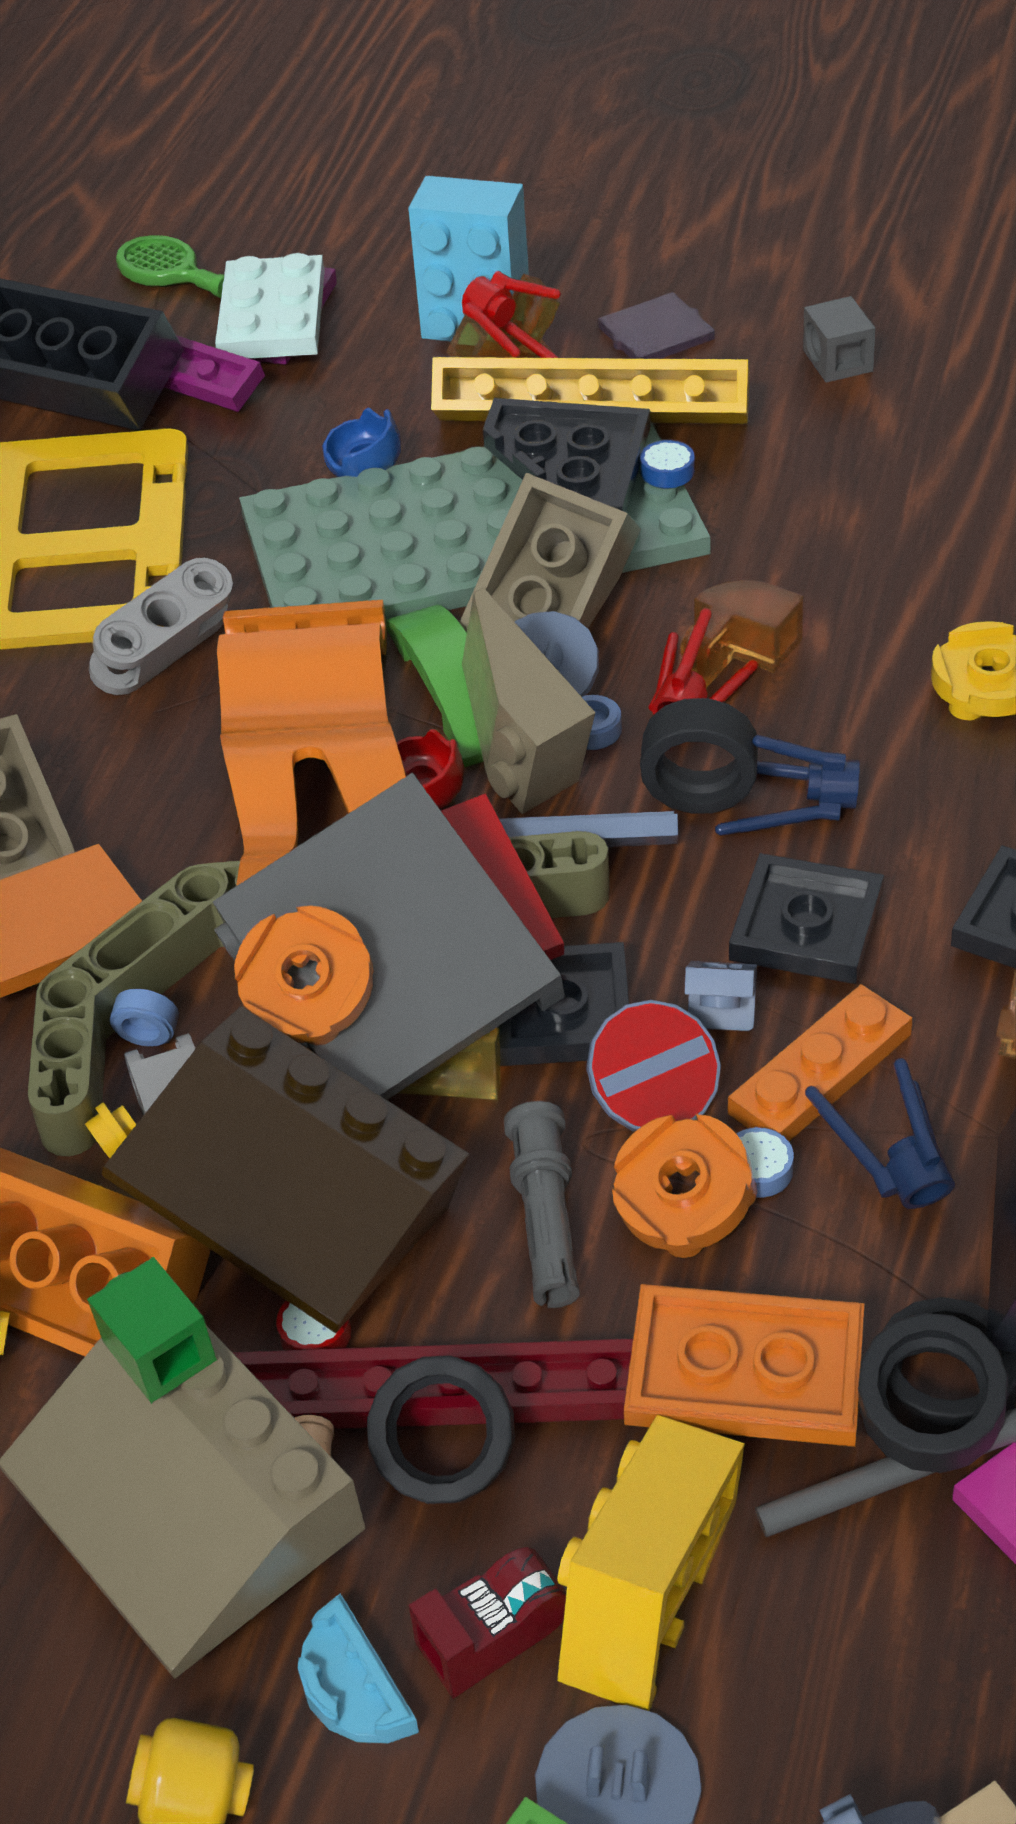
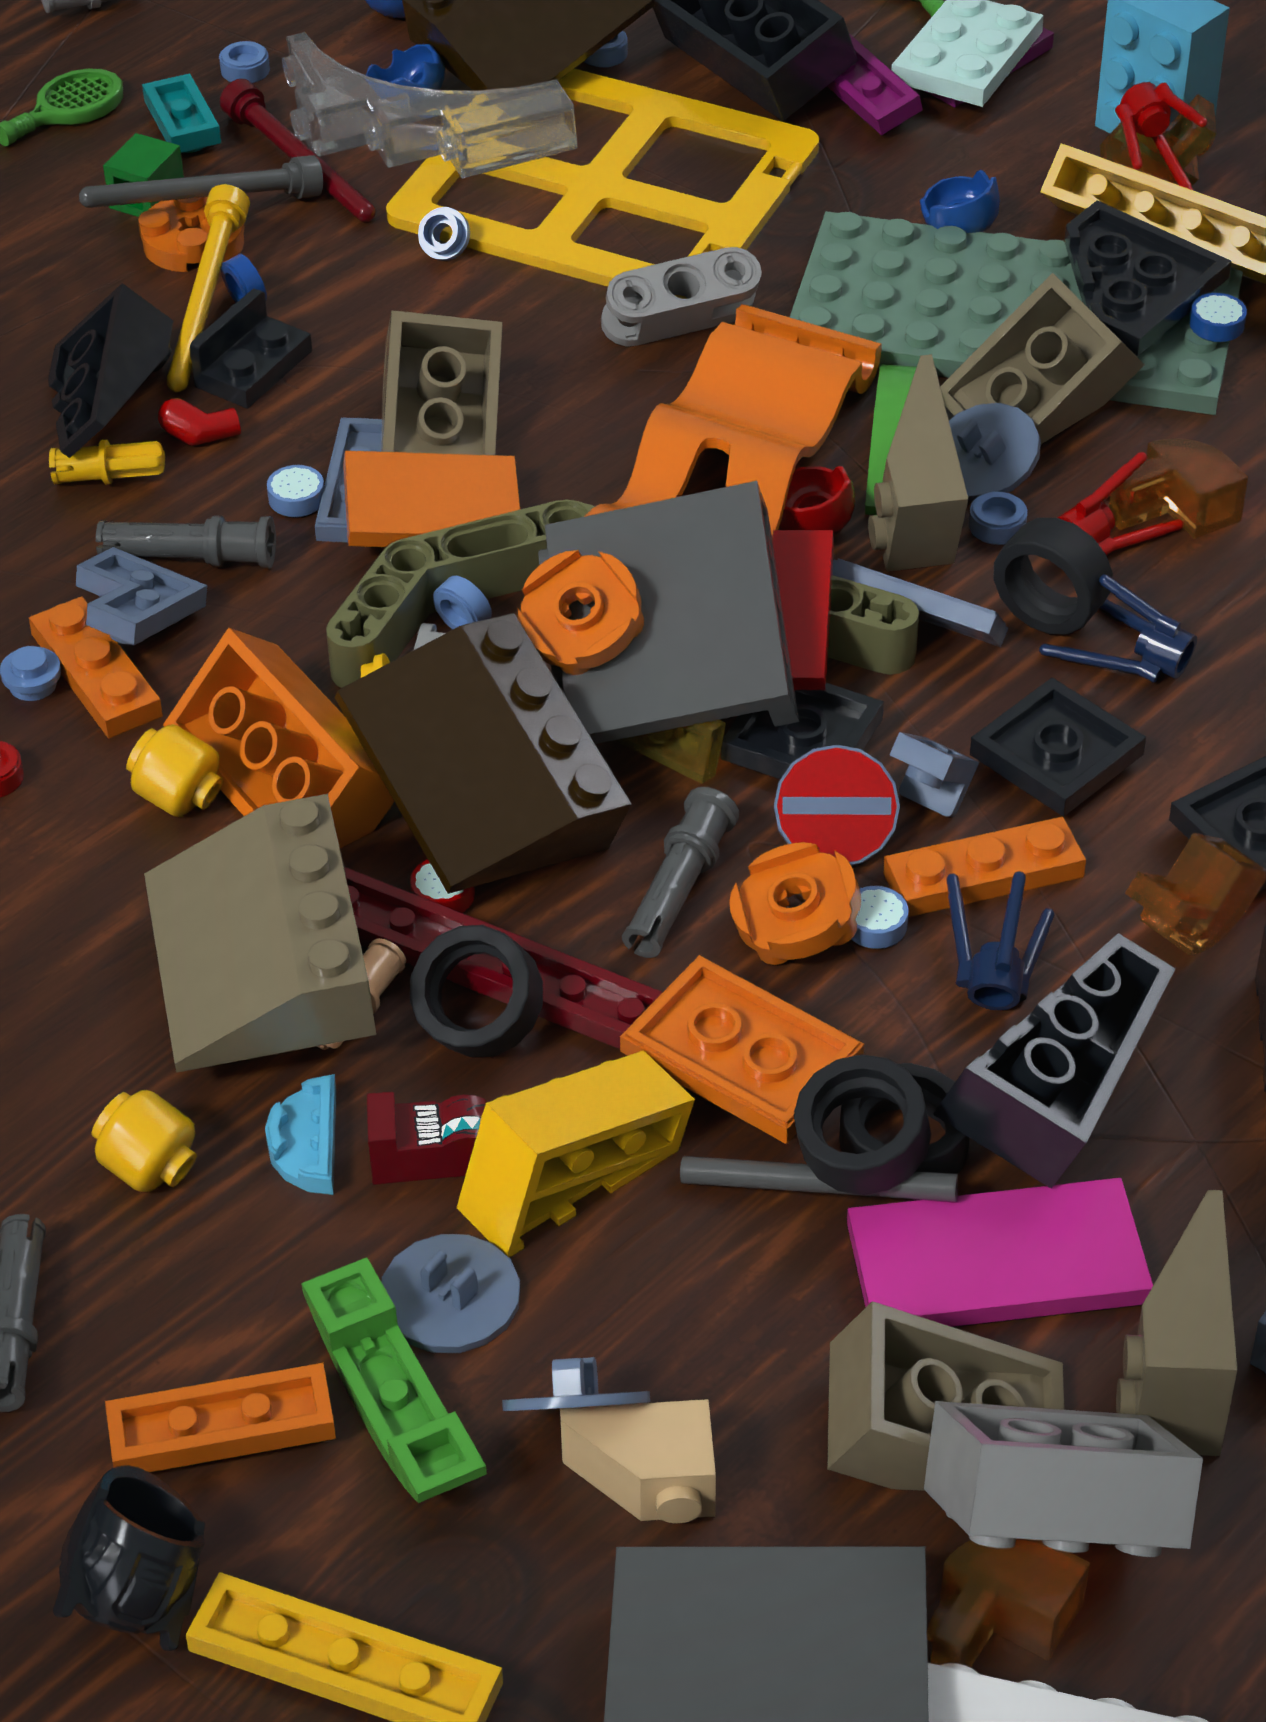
camera: 25 degrees right, 0 degrees up
(152, 1329) = (283, 810): green brick -> none

